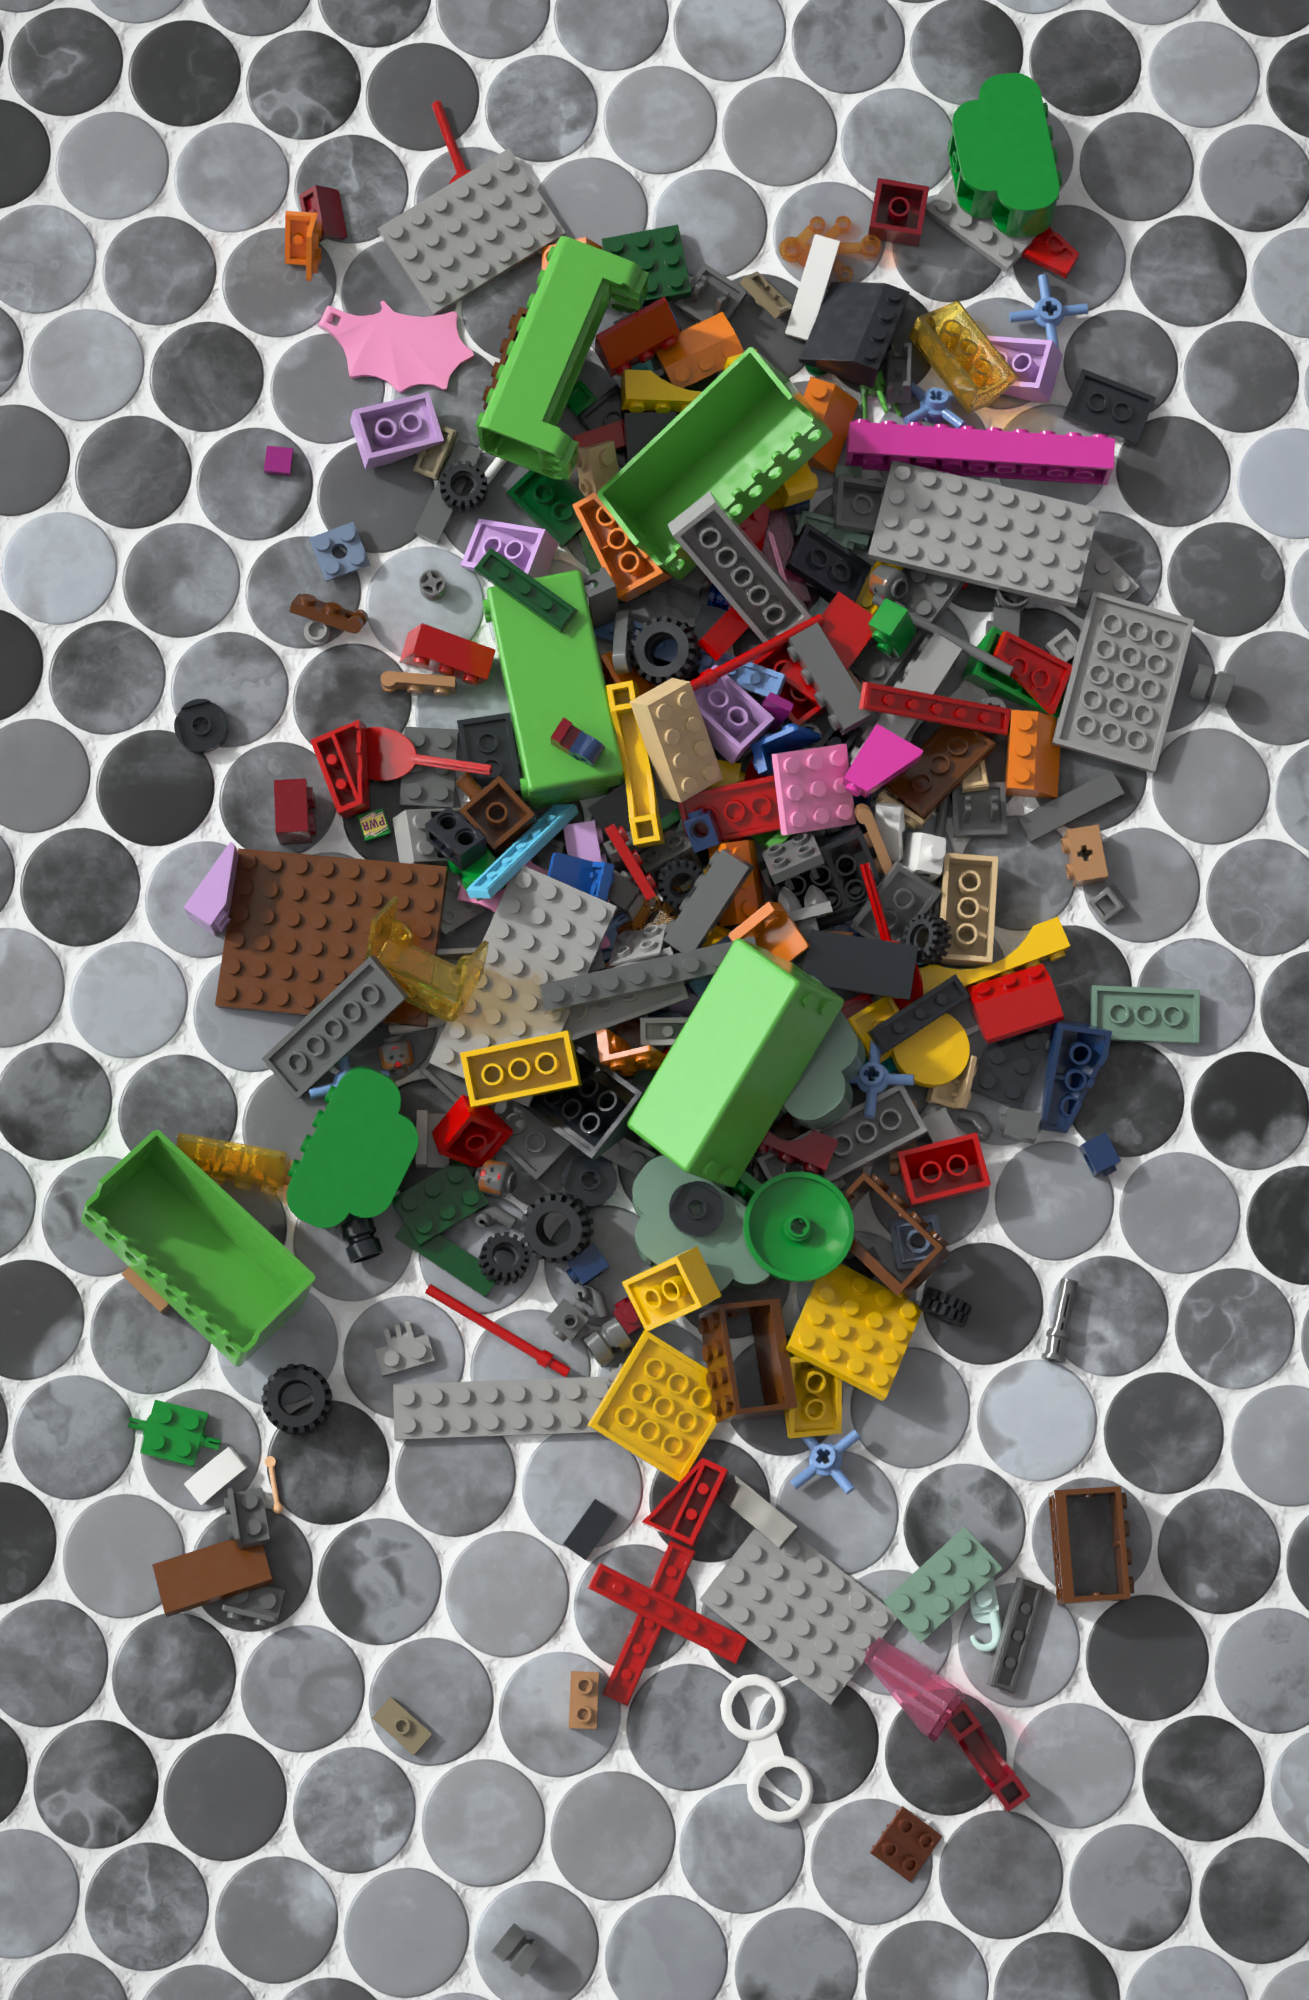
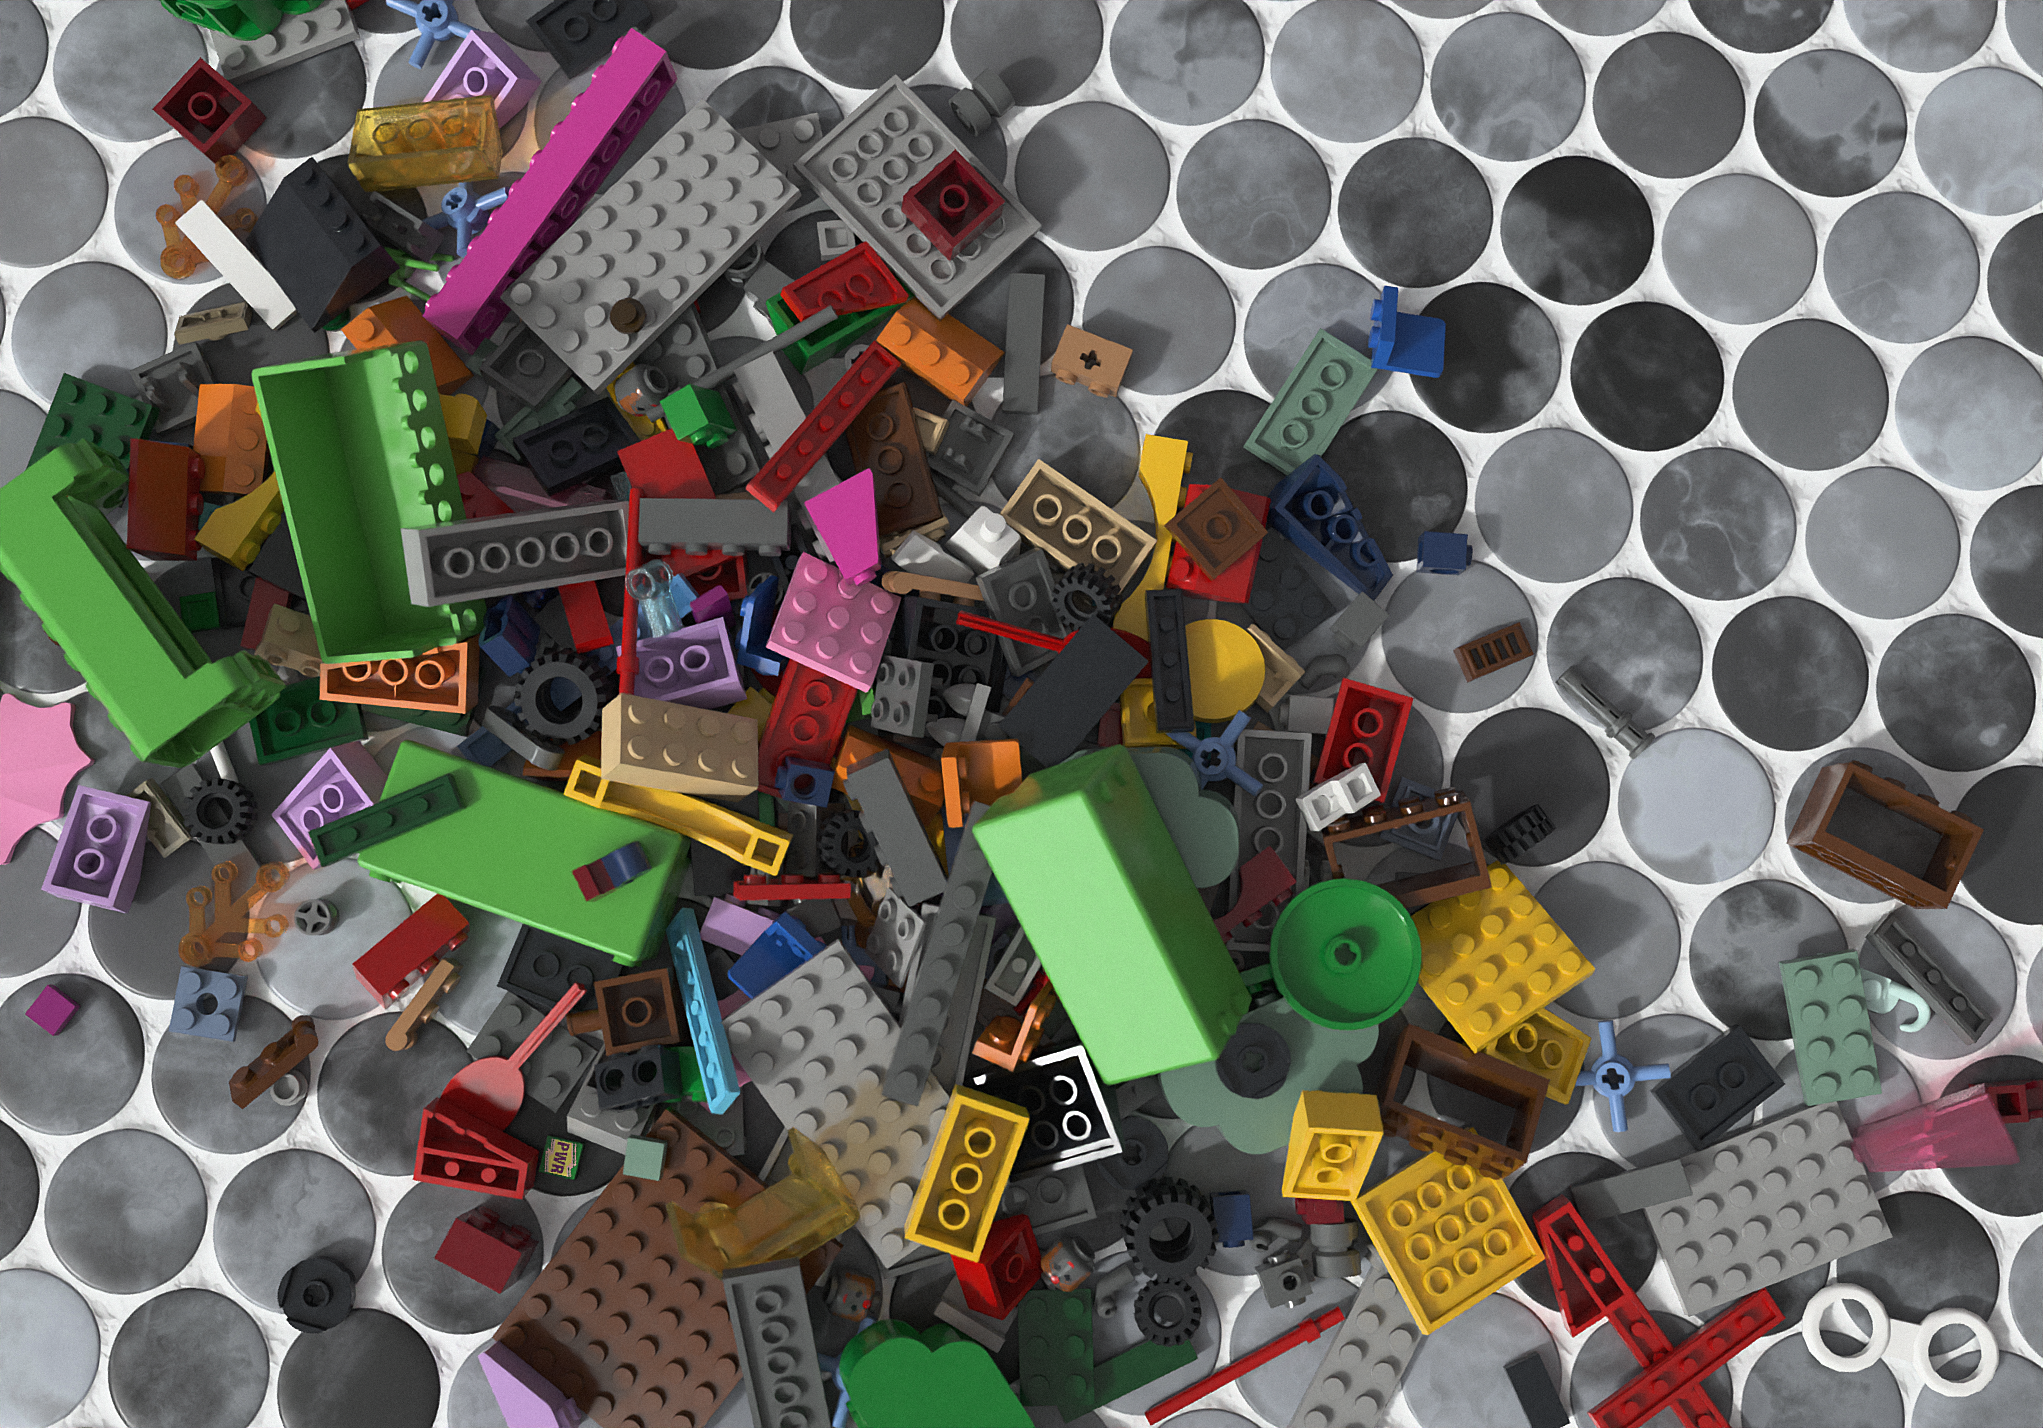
camera: 55 degrees left, 5 degrees up
(400, 532) = (229, 917): none -> clear orange plant
(410, 871) = (645, 1157): none -> sand green tile
(602, 599) = (454, 732): dark grey hinge -> none
(682, 595) = (509, 635): none -> dark blue brick
(761, 668) = (655, 597): none -> clear light blue piece
(859, 1534) = (1717, 1087): none -> black plate
(896, 1171) = (1338, 796): none -> white slope
(928, 546) = (628, 316): none -> dark brown plate
(1021, 992) = (1216, 529): none -> reddish brown plate
(1042, 1228) = (1467, 660): none -> reddish brown slope
(1108, 903) = (1159, 369): flat silver slope -> none
(1128, 705) = (952, 205): none -> dark red brick
(1226, 1048) = (1405, 340): none -> blue bracket

